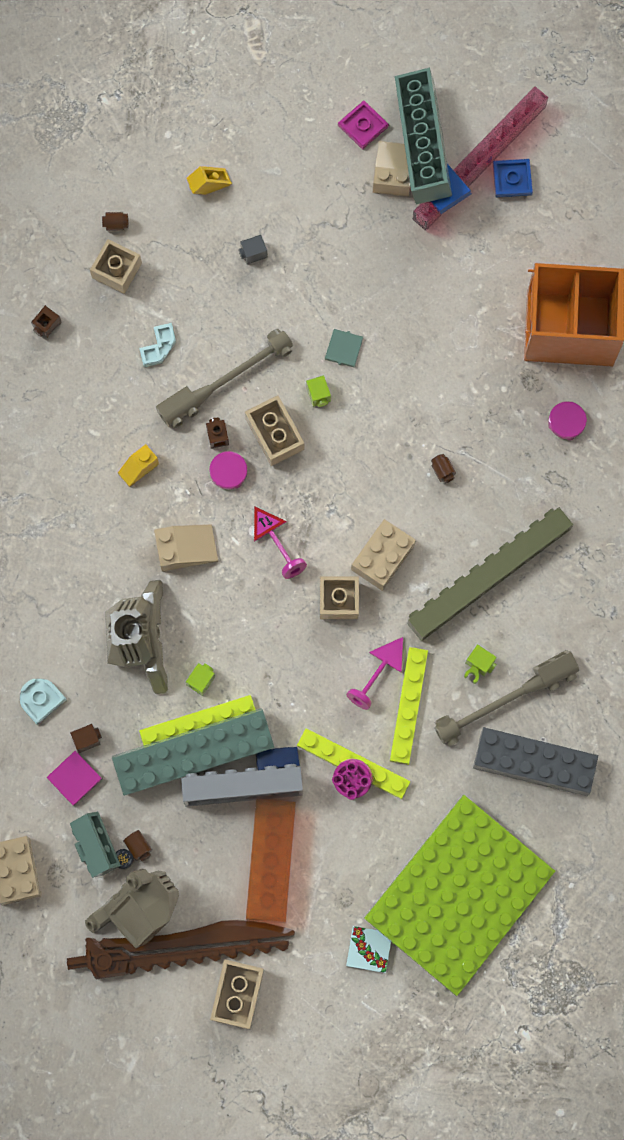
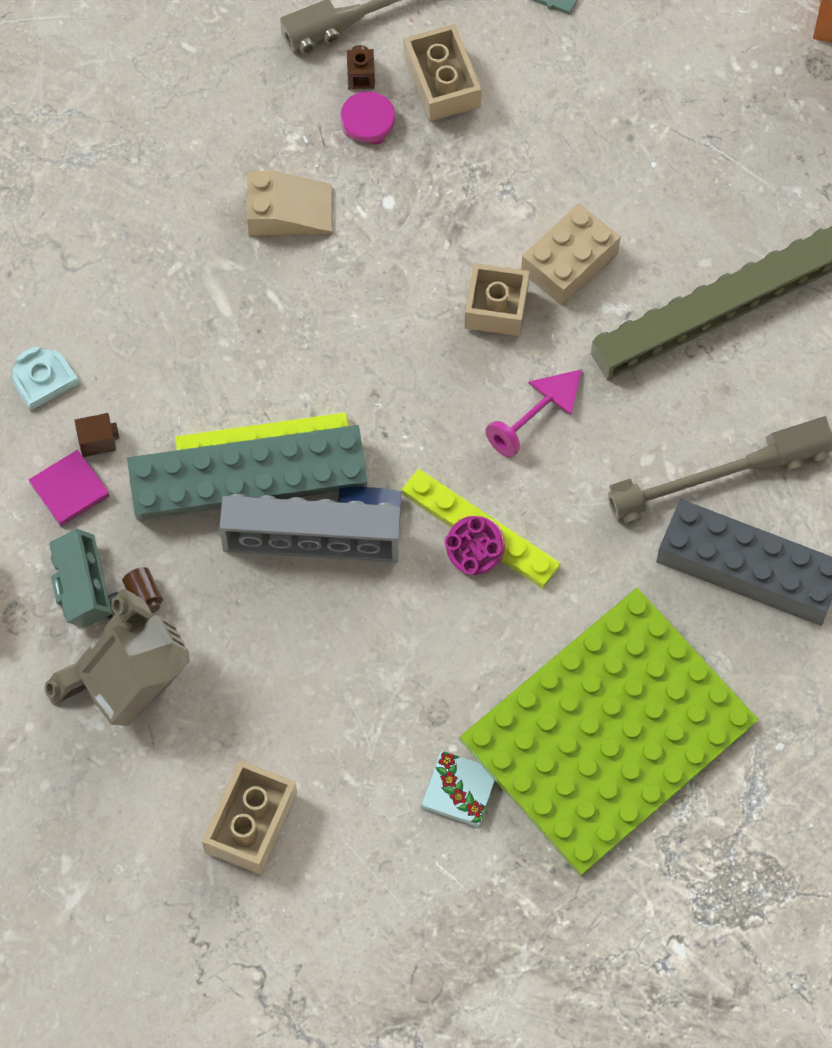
camera: 10 degrees right, 10 degrees down
(117, 963) = (81, 748): reddish brown piece -> none
(134, 635) = (192, 306): dark tan helmet -> none
(138, 465) = (242, 92): yellow slope -> none
(200, 678) = (277, 380): lime brick -> none
(266, 523) = (408, 192): dark pink piece -> none
(270, 861) = (334, 641): clear orange brick -> none
(318, 391) = (513, 33): lime brick -> none
(408, 705) = (574, 462): neon yellow plate -> none
(443, 468) = (675, 155): reddish brown brick -> none
(480, 662) = (688, 416): lime brick -> none

